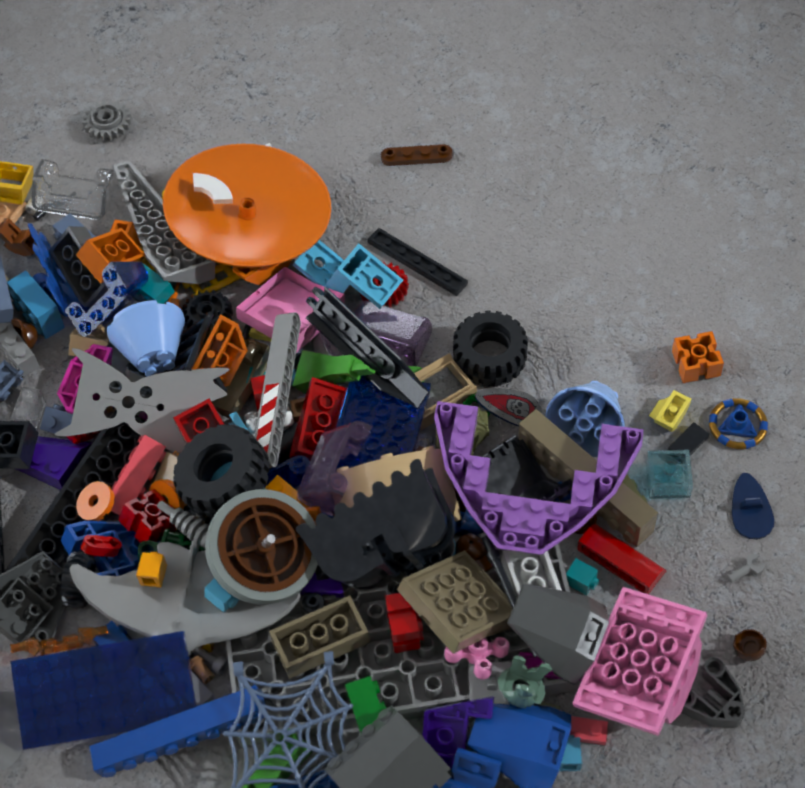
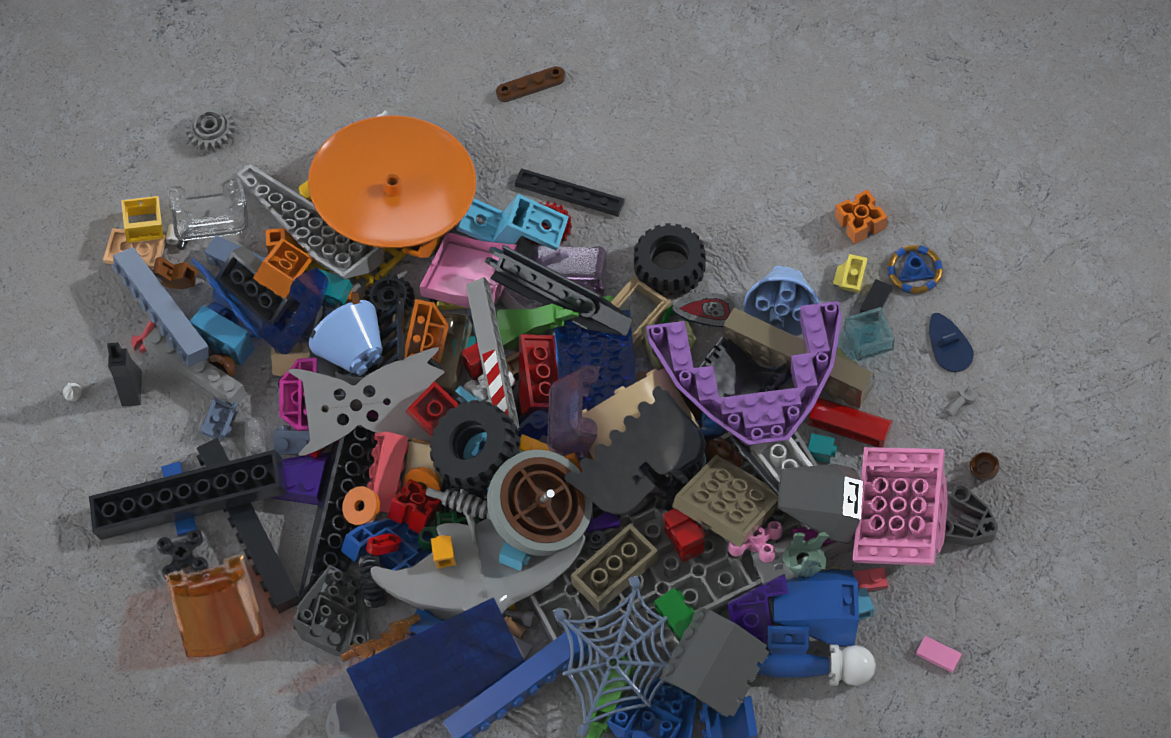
camera: 15 degrees left, 5 degrees up
(213, 188) = (354, 173): white tile -> none

